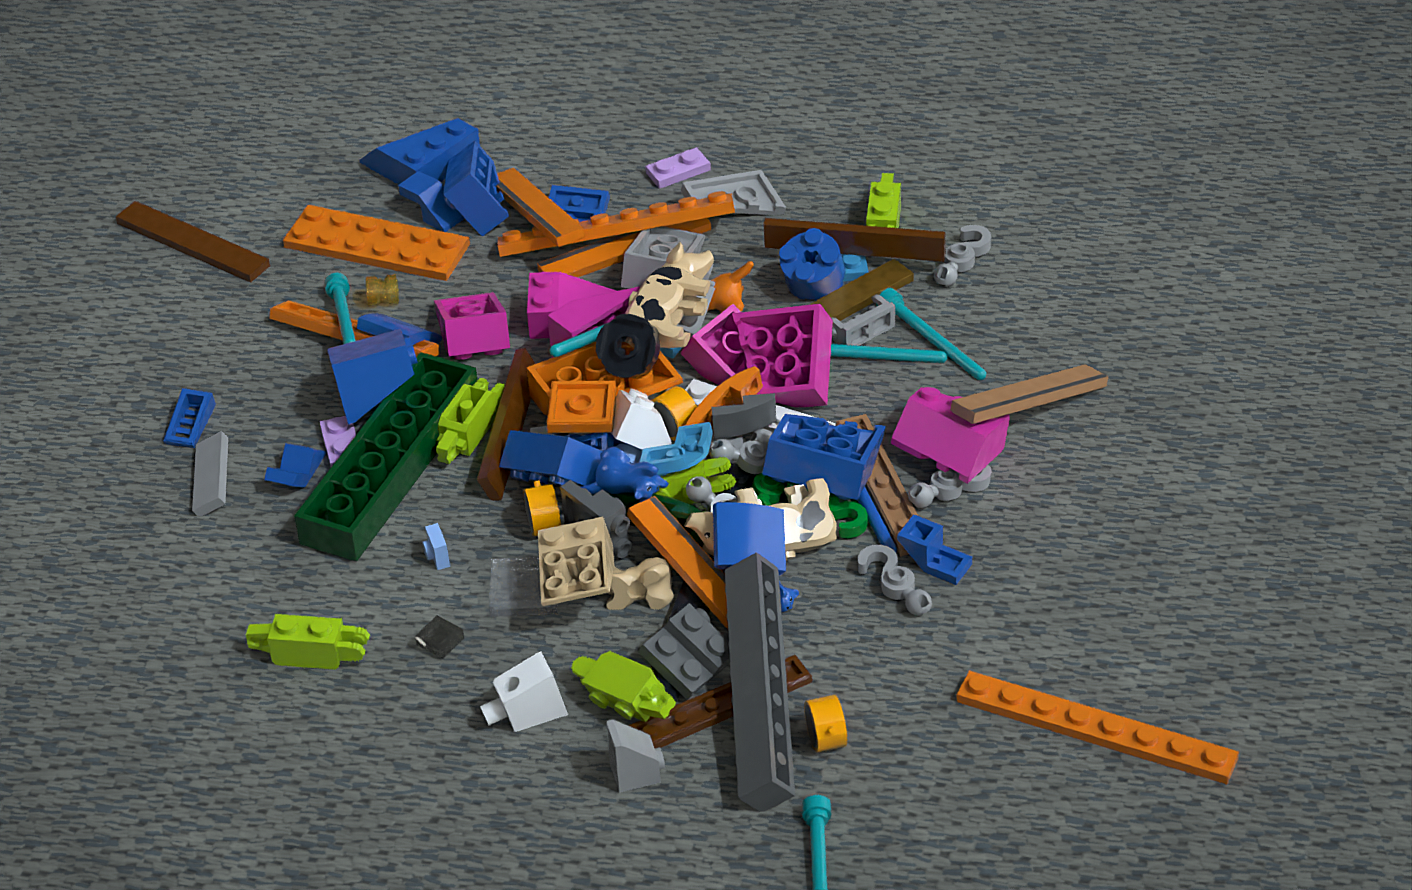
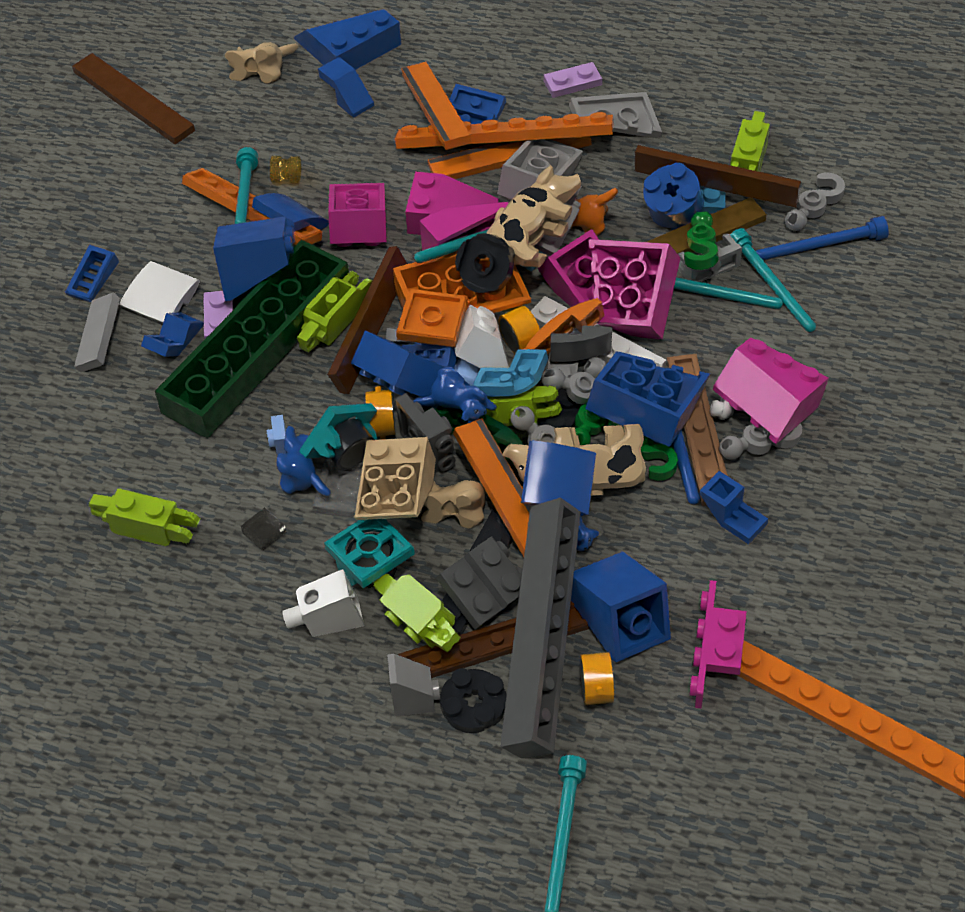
camera: 10 degrees right, 10 degrees up
(268, 426) = (158, 292): none -> white slope
(330, 186) = (261, 60): none -> tan animal
(377, 242) = (292, 120): orange plate -> none
(464, 571) = (296, 470): none -> blue animal
(472, 188) = (384, 79): blue wedge -> none
(508, 532) = (341, 437): none -> piece
(565, 636) = (369, 554): none -> teal piece
(694, 748) = (465, 684): none -> black plate
(839, 652) = (622, 605): none -> blue slope
(851, 304) = (702, 240): none -> green piece
(896, 581) = (692, 533): light grey piece -> none
(903, 460) = (721, 409): none -> white arm
(946, 672) = (721, 644): none -> dark pink bracket
(1028, 394) = (849, 358): medium nougat tile -> none
(1031, 273) = (876, 228): none -> blue piece

